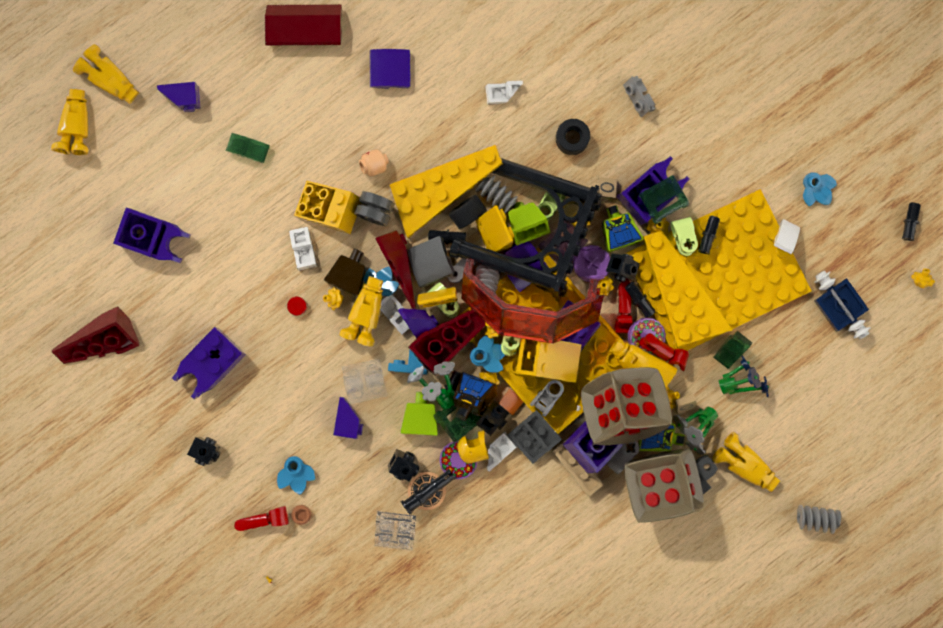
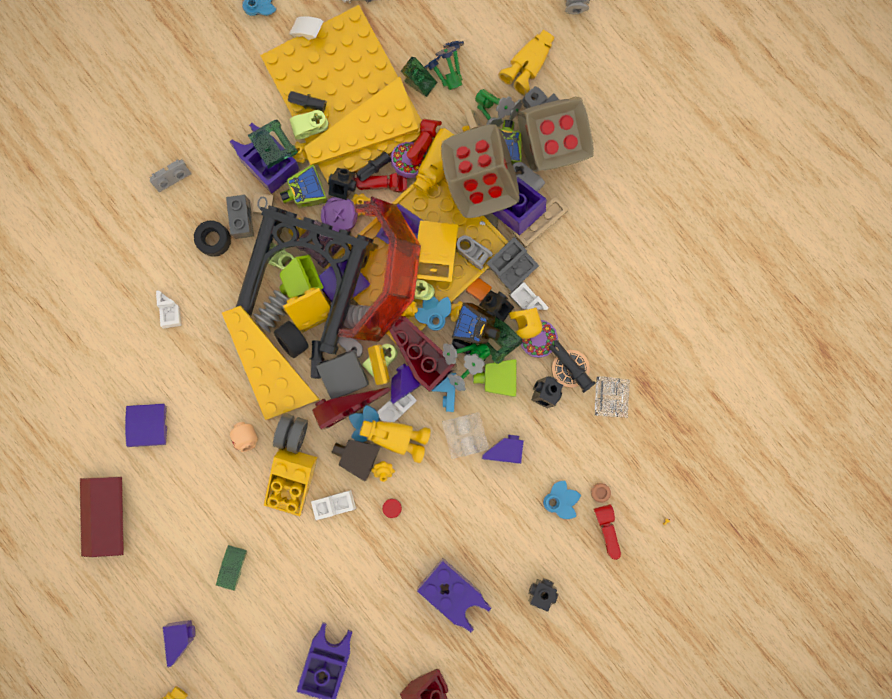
camera: 90 degrees left, 0 degrees up
(593, 164) = (240, 216): none -> dark grey brick

